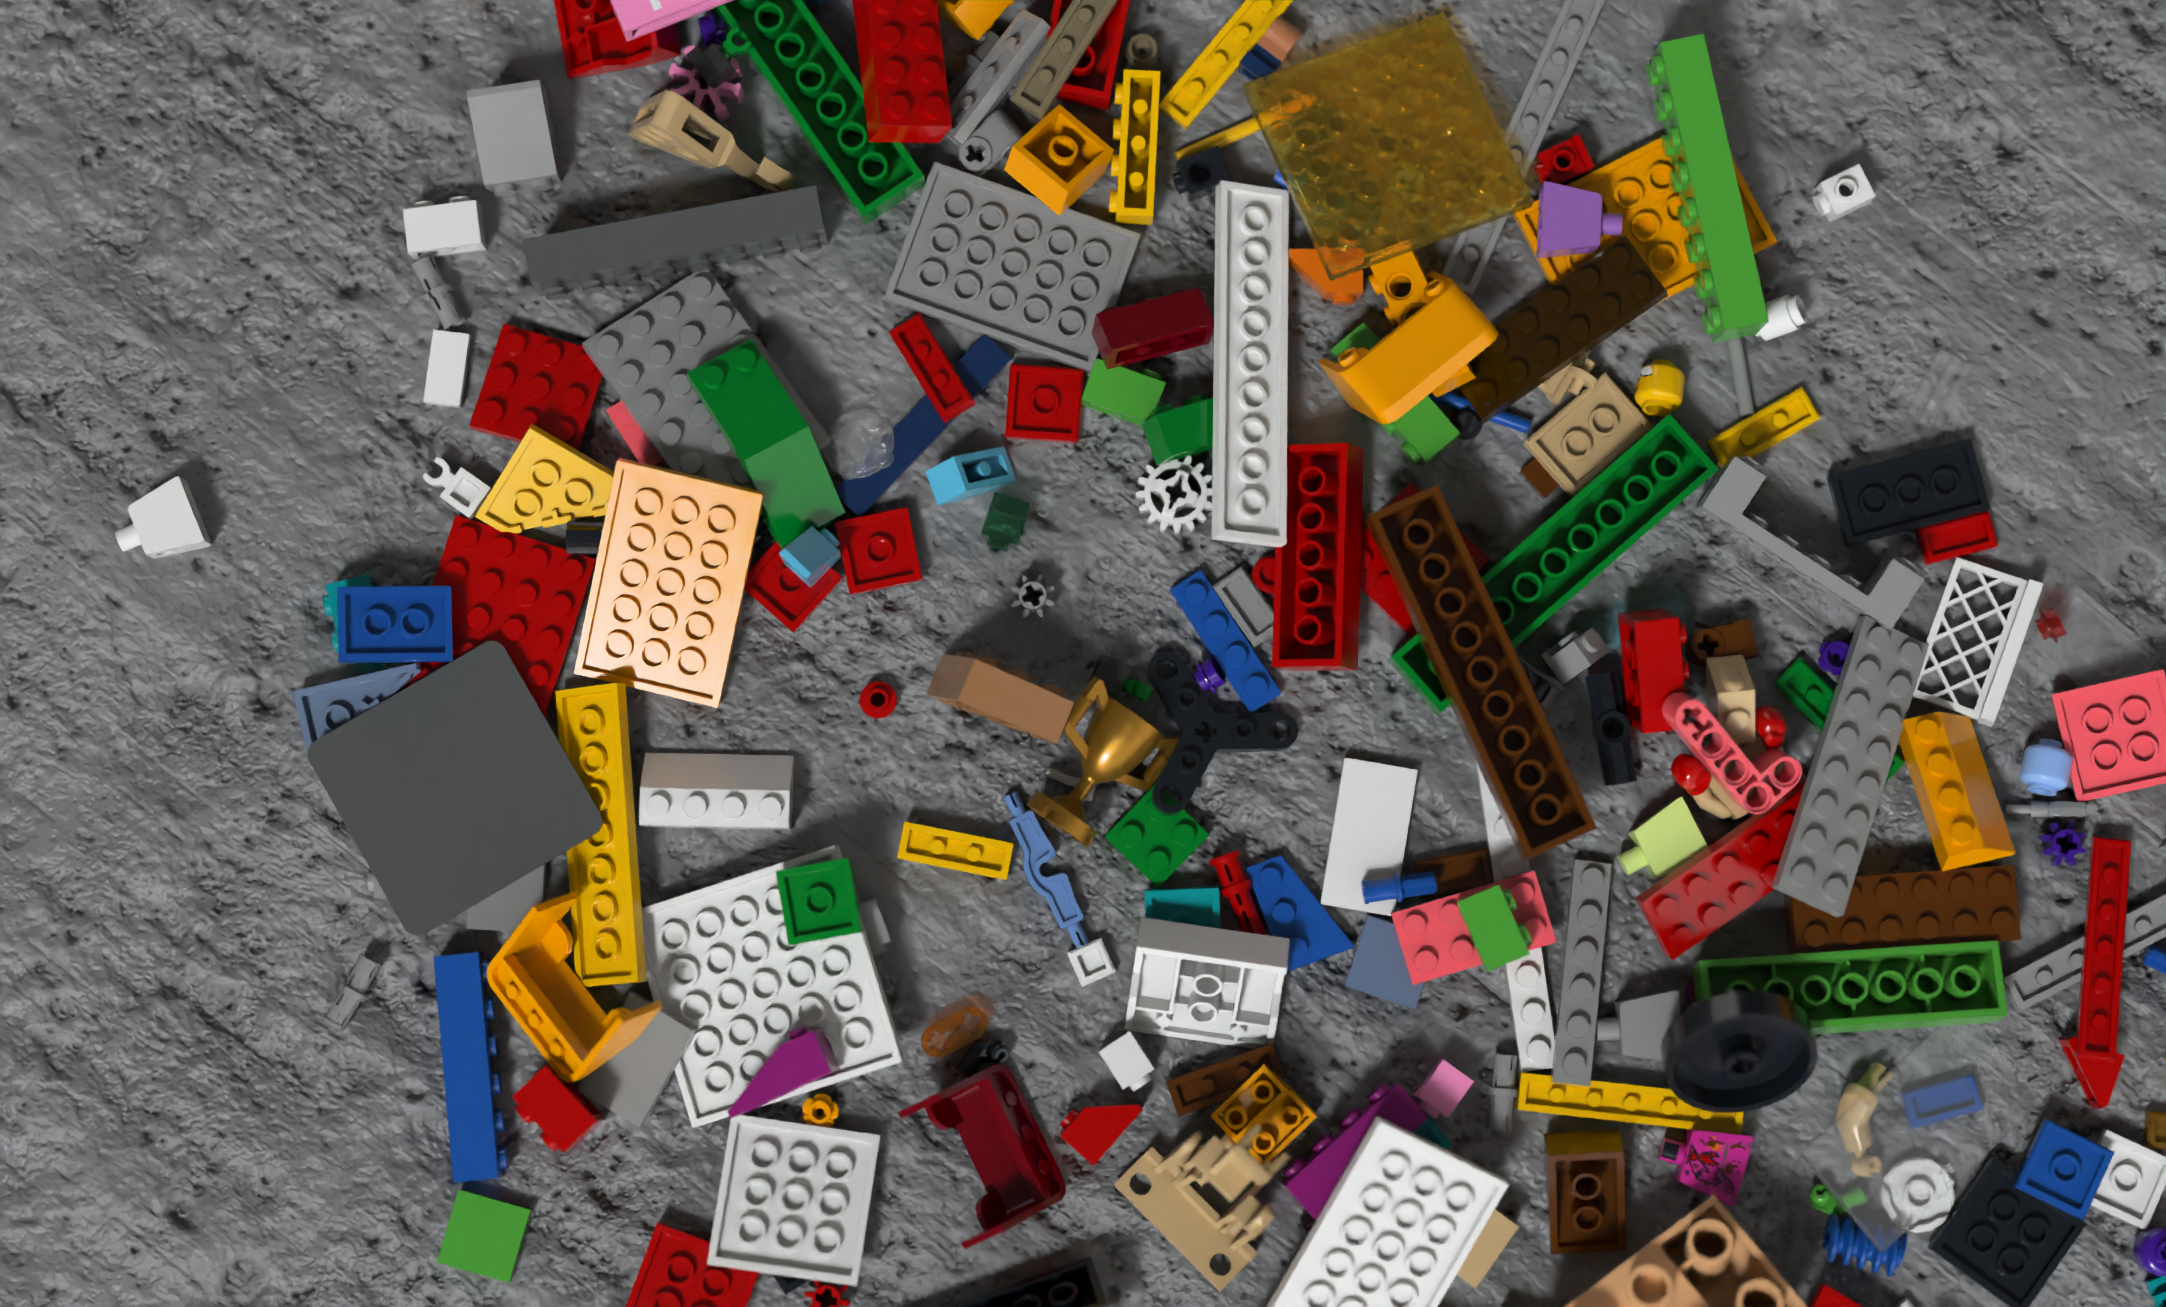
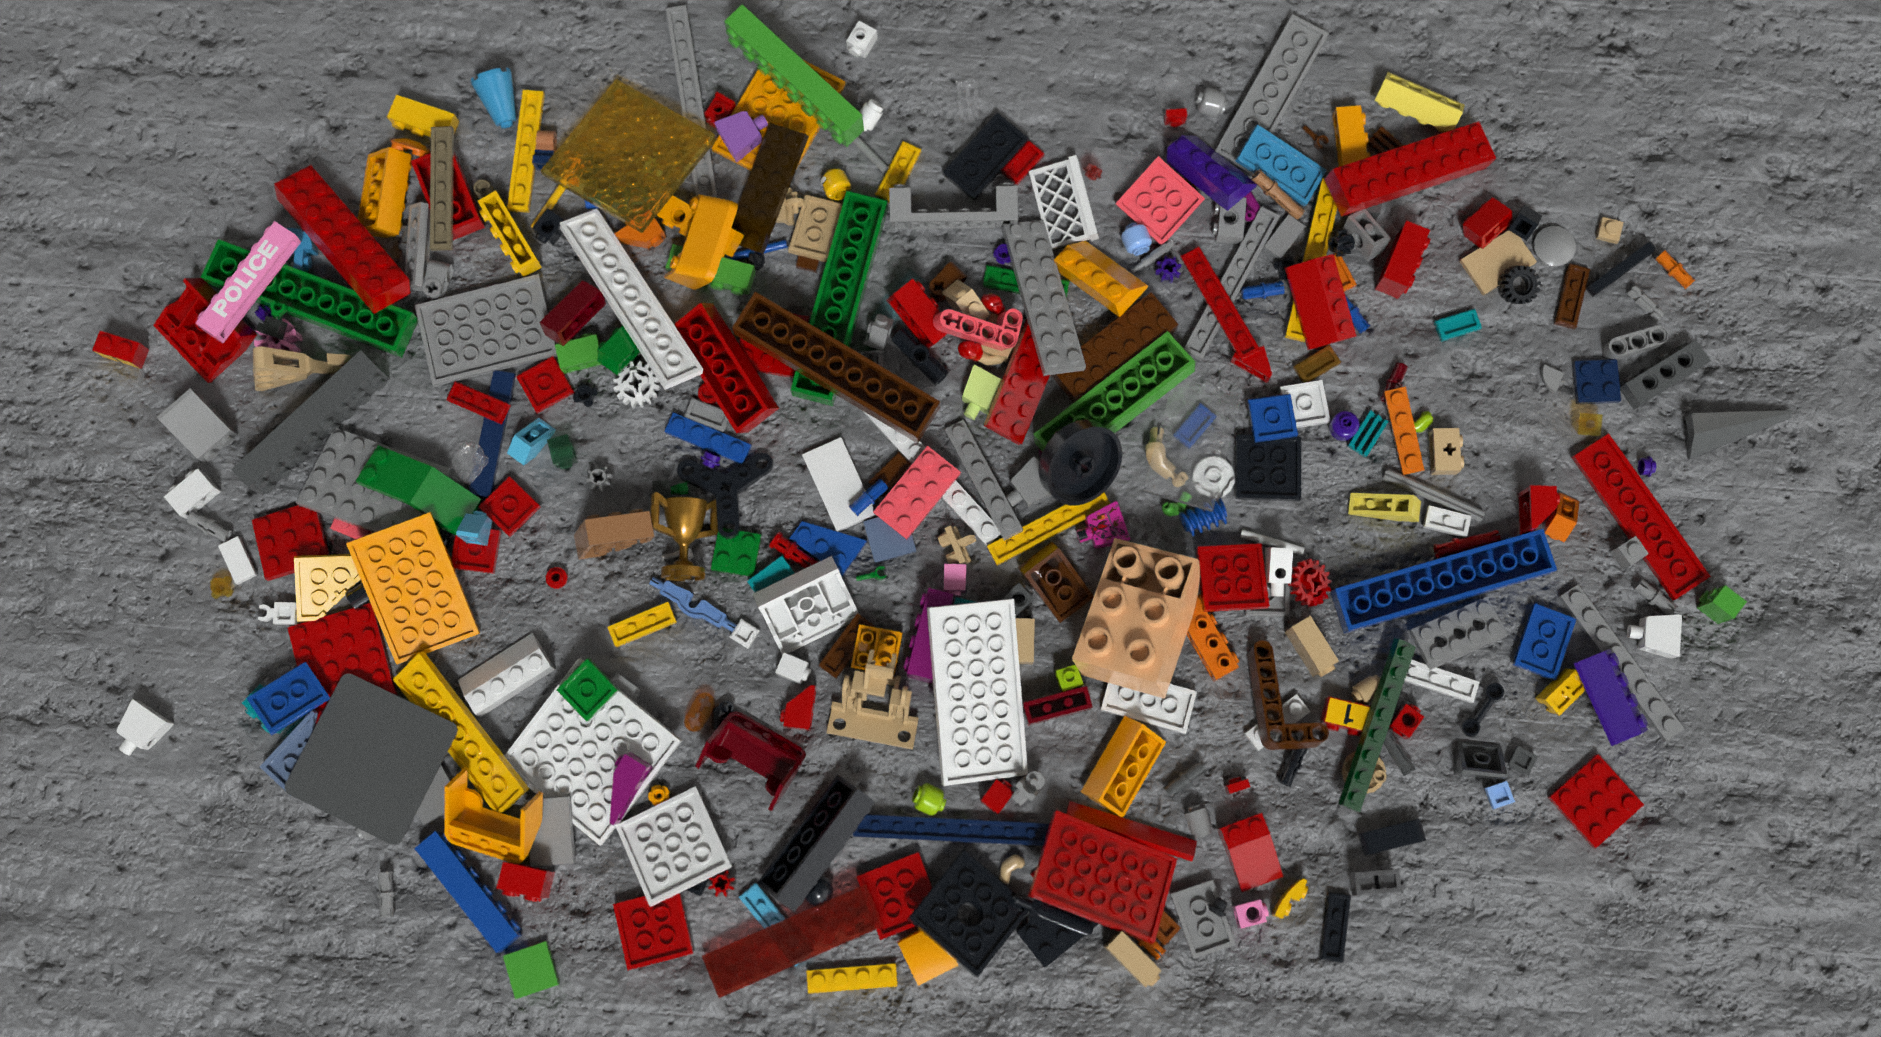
camera: 30 degrees left, 5 degrees down
(398, 382) = (215, 587): none -> clear yellow plate
(1059, 159) = (474, 264): light orange brick -> none
(1094, 448) = (581, 390): none -> black plate
(1327, 1000) = (872, 575): none -> green hand
(1481, 1025) = (952, 537): none -> tan hips
(1494, 928) = (924, 483): bright green brick -> none
(1502, 1092) = (984, 561): light grey pin -> none
(1530, 1173) = (1026, 592): none -> dark grey brick

